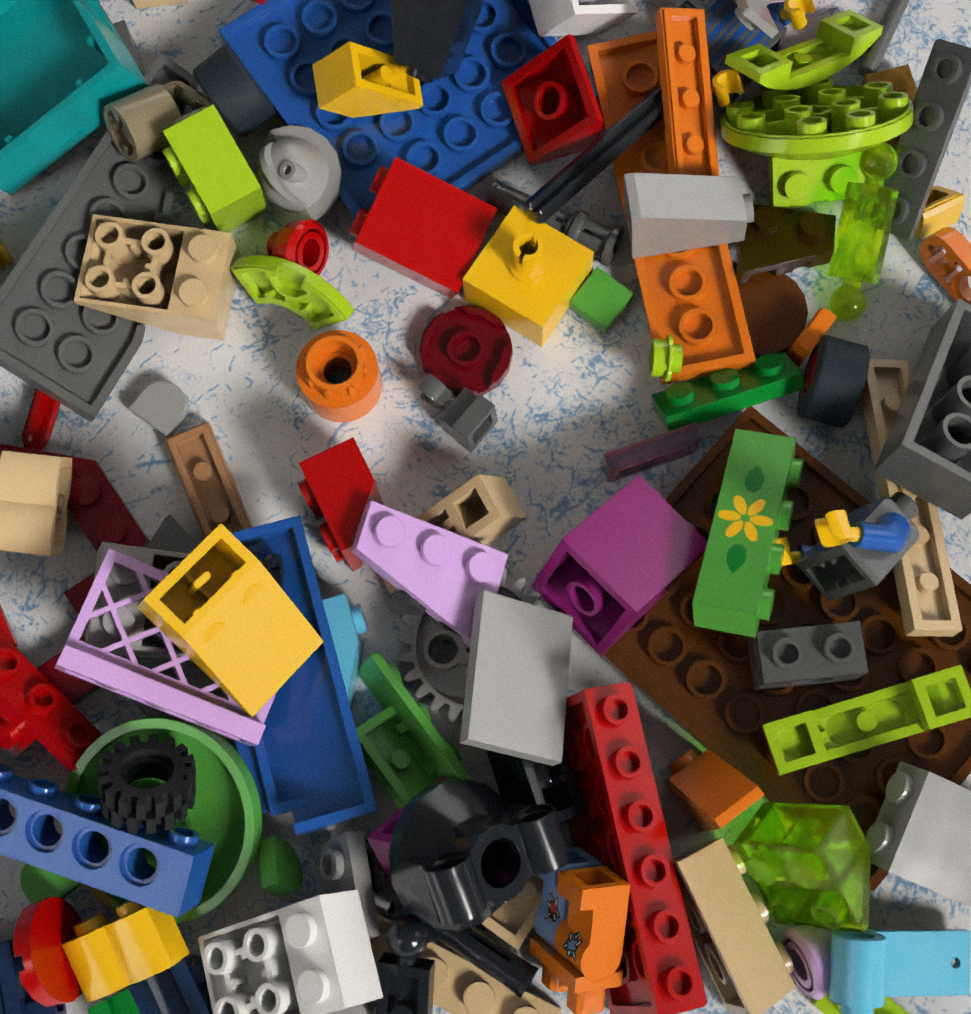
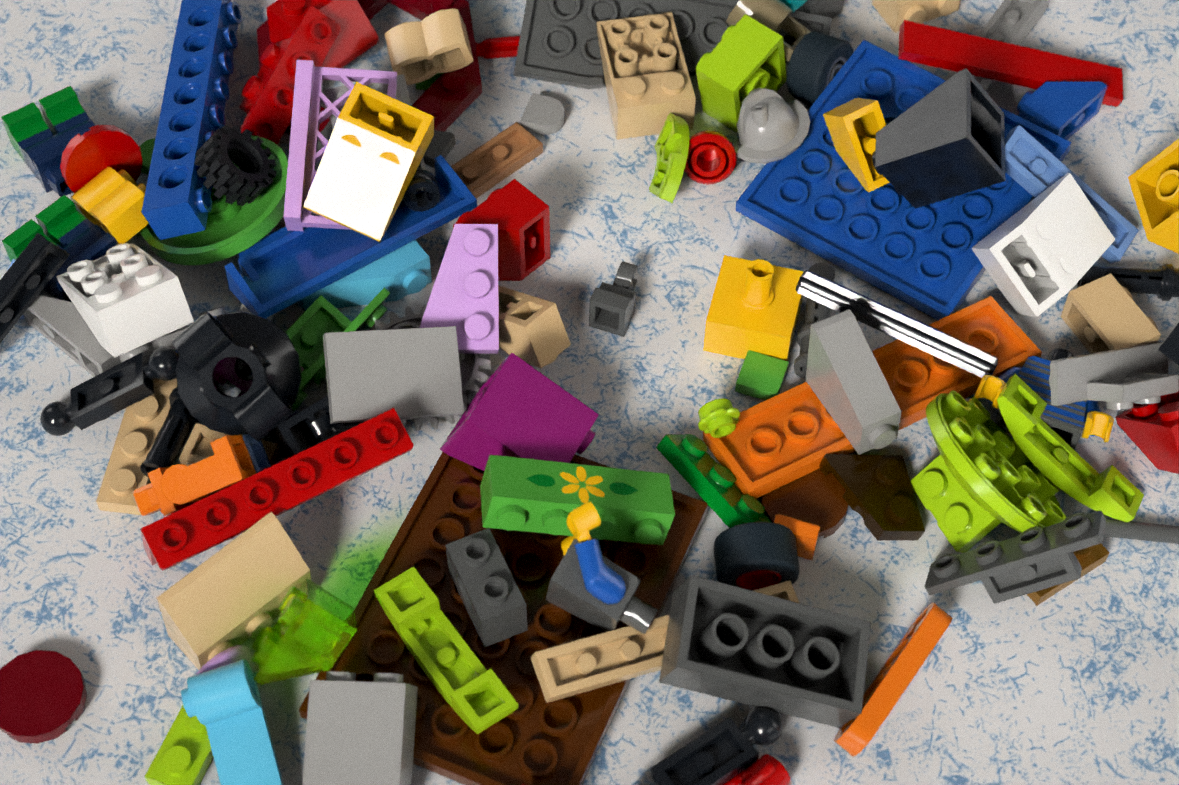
camera: 65 degrees right, 20 degrees down
(279, 866) = (203, 286): bright green tile -> none
(335, 352) = (612, 211): orange piece -> none
(422, 227) = (760, 215): red brick -> none
(467, 350) = (673, 295): dark red tile -> none
(554, 103) = (917, 277): red slope -> none
(651, 452) = (632, 439): tile -> none
(686, 91) = (967, 361): orange tile -> none
(710, 789) = (342, 550): orange slope -> none
(863, 232) = (912, 546): clear neon green plate -> none
(941, 211) = (970, 613): yellow slope -> none

